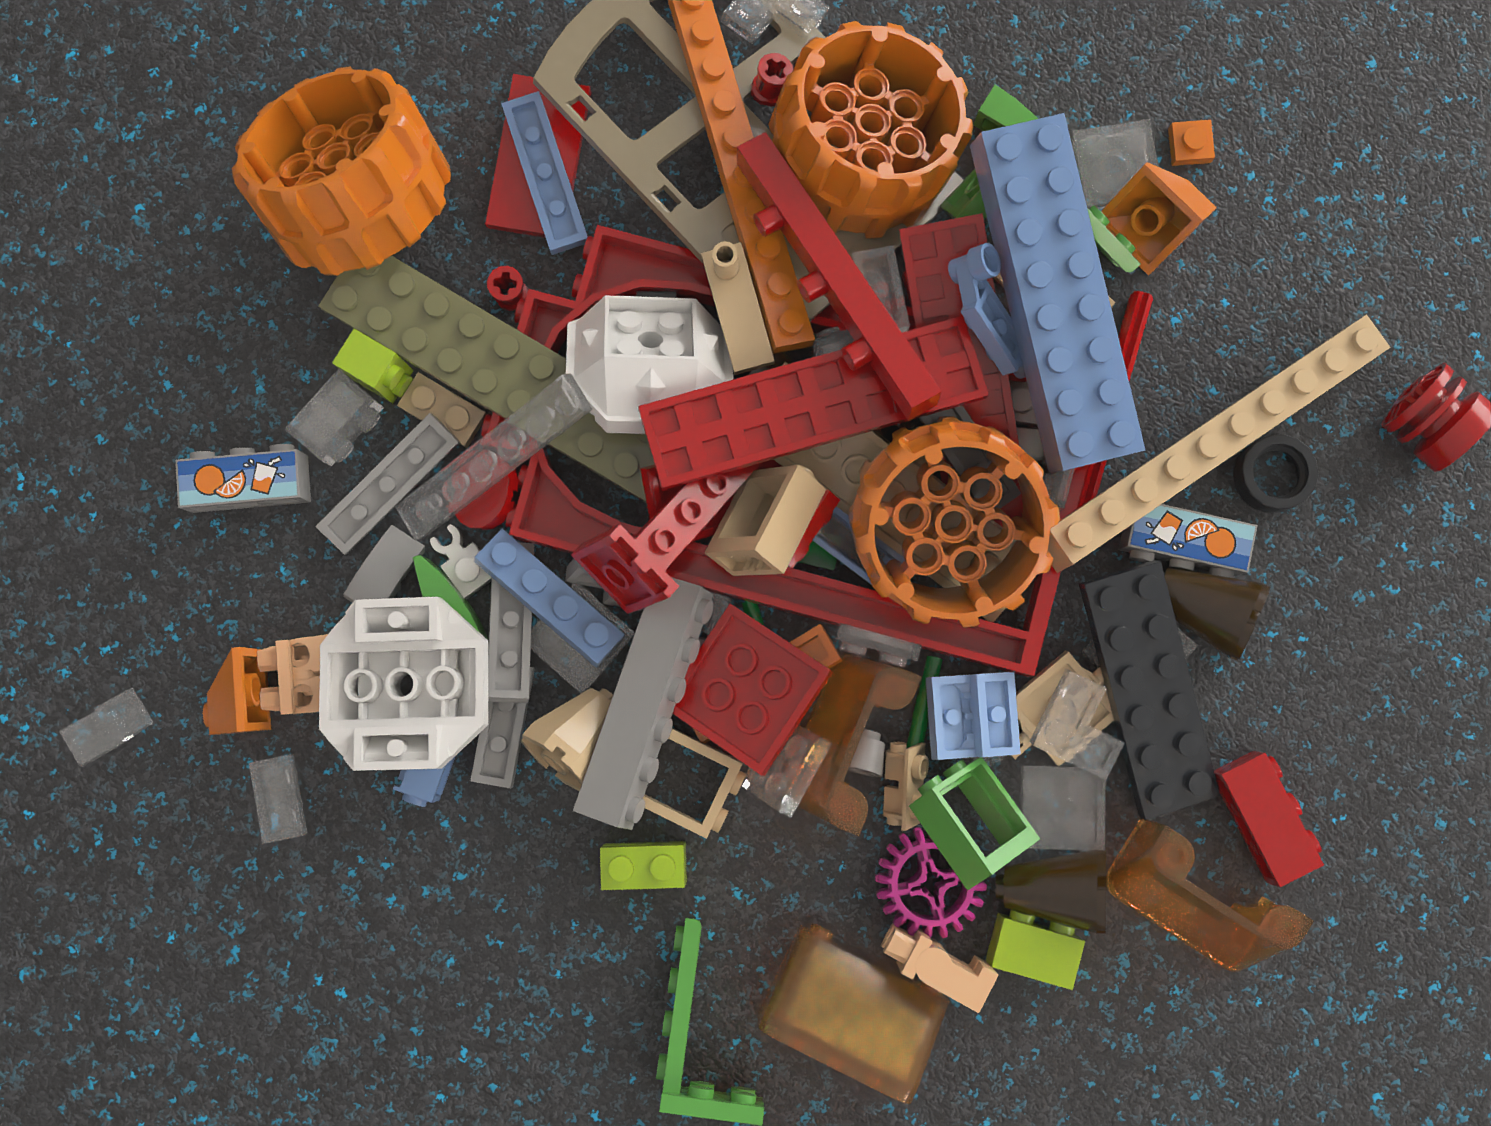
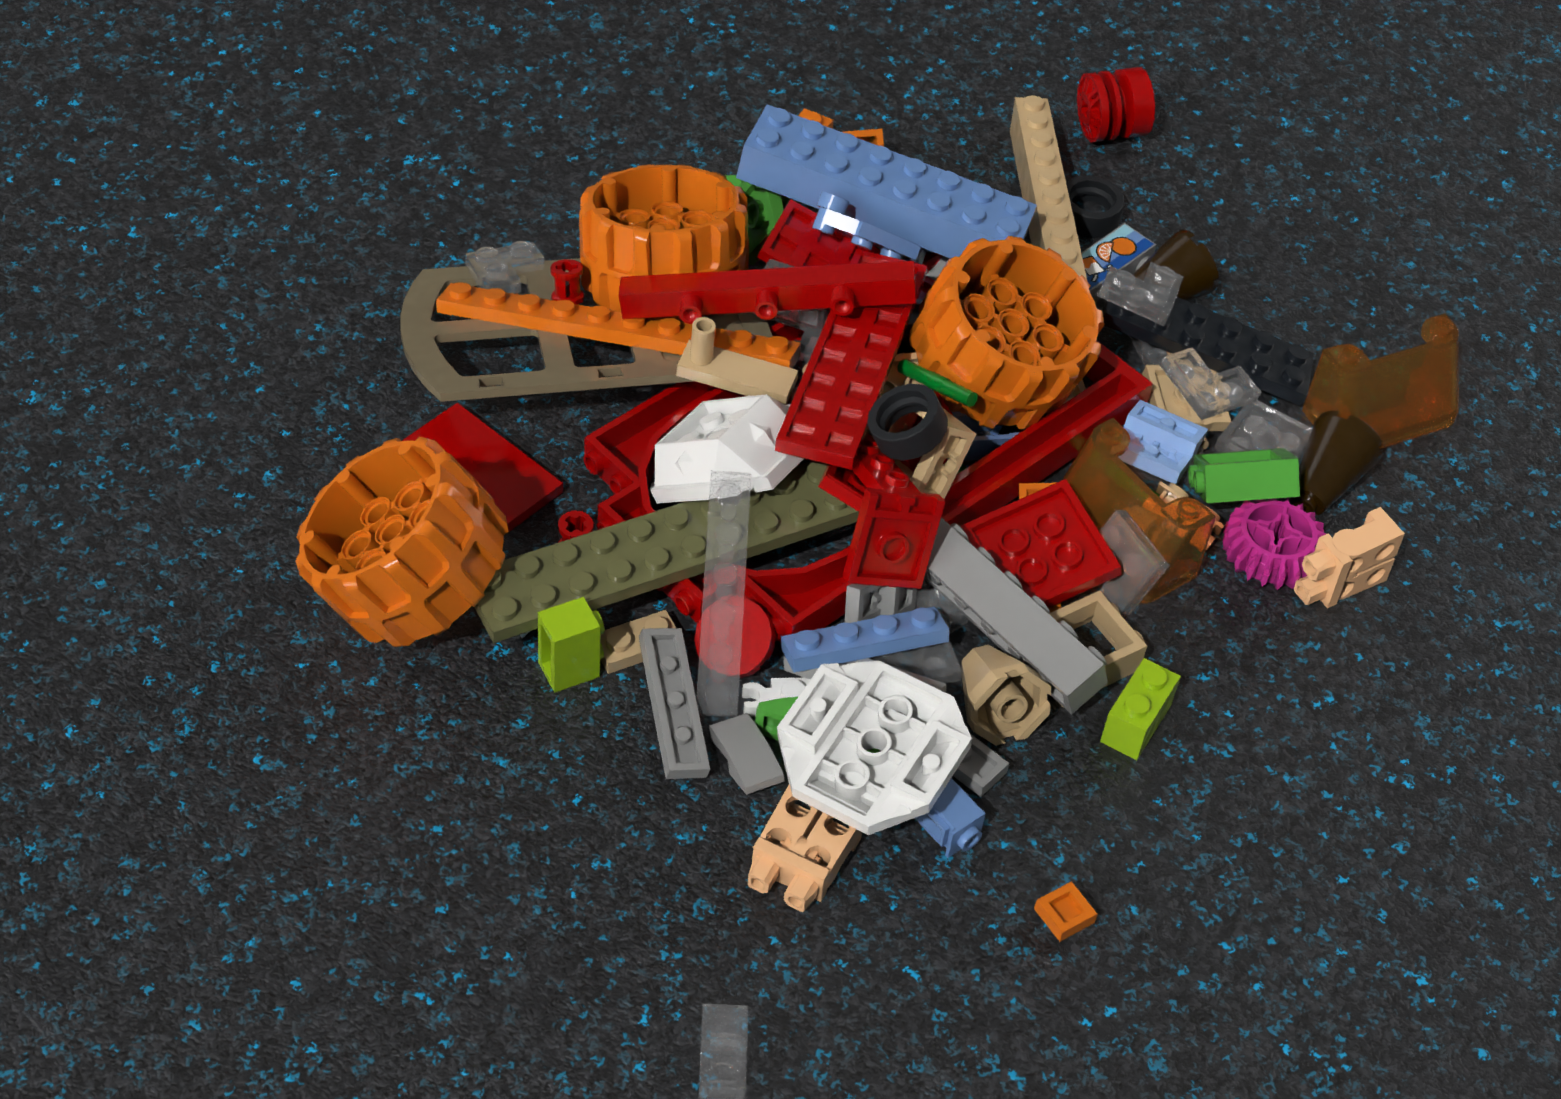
camera: 65 degrees left, 35 degrees down
(235, 695) = (782, 905): orange slope -> none
(243, 479) = (580, 805): brick -> none
(278, 798) = (894, 945): clear plate -> none
(335, 419) = (584, 709): clear brick -> none
(398, 913) = (1065, 911): none -> orange plate
(545, 172) = (511, 456): medium blue plate -> none
(699, 1098) = (1352, 781): bright green bracket -> none
(724, 483) = (917, 440): none -> black tyre
(846, 494) = (937, 382): none -> green piece
(852, 1014) = (1351, 636): clear orange windscreen -> none
(891, 649) = (1055, 455): clear plate -> none
(1035, 950) = (1369, 494): lime brick -> none
(1135, 617) = (1147, 297): none -> clear plate
(1268, 818) = (1325, 326): red brick -> none

